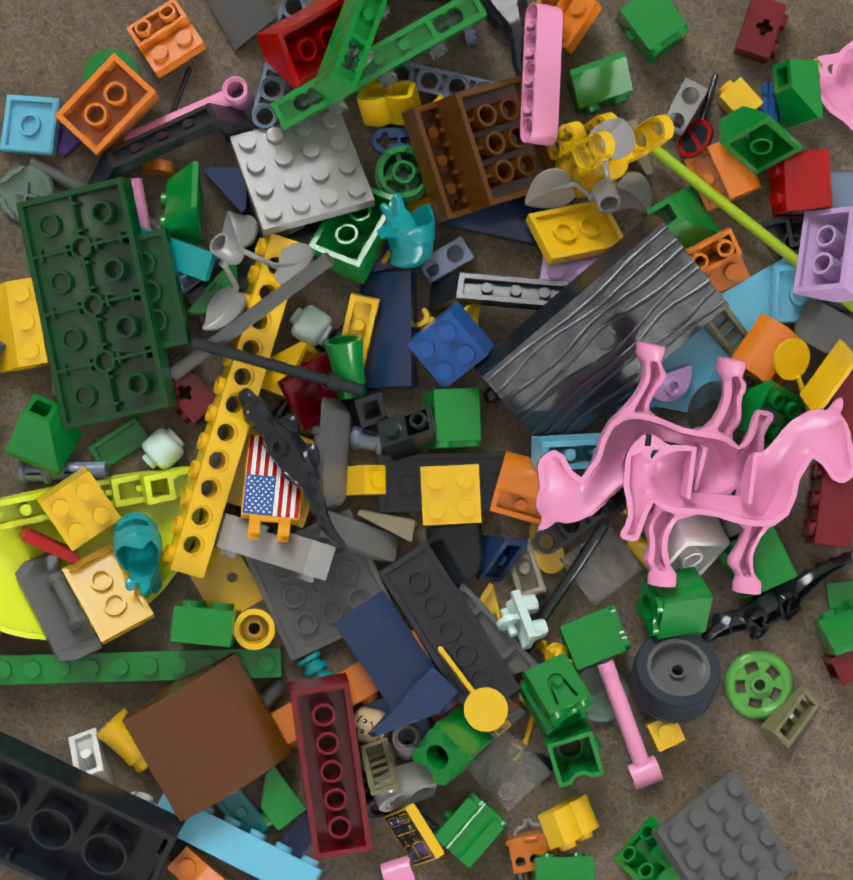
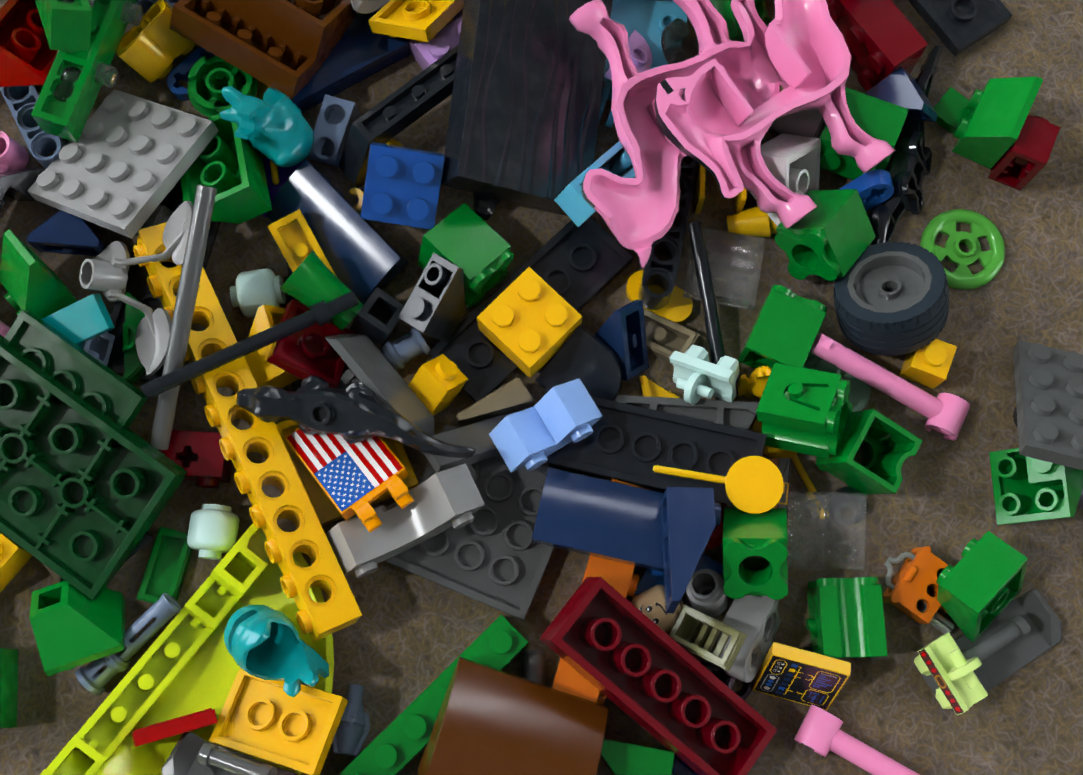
camera: 40 degrees left, 10 degrees down
(78, 508) = (172, 661): yellow brick -> none
(147, 631) = (353, 724): none -> sand blue piece
(203, 624) = (402, 658): green brick -> none
(217, 588) = (397, 622): yellow piece -> none
(260, 639) = (457, 601): yellow plant -> none
(314, 666) = (549, 603): teal bush -> none
(401, 566) = (536, 432): none -> light blue brick
(517, 489) = (591, 259): orange brick -> none
(568, 822) = (930, 524): yellow brick -> none
(727, 599) = (872, 187): none -> blue beam
(784, 712) = (1020, 252): olive slope -> none
(809, 562) = (903, 90): none -> dark blue slope

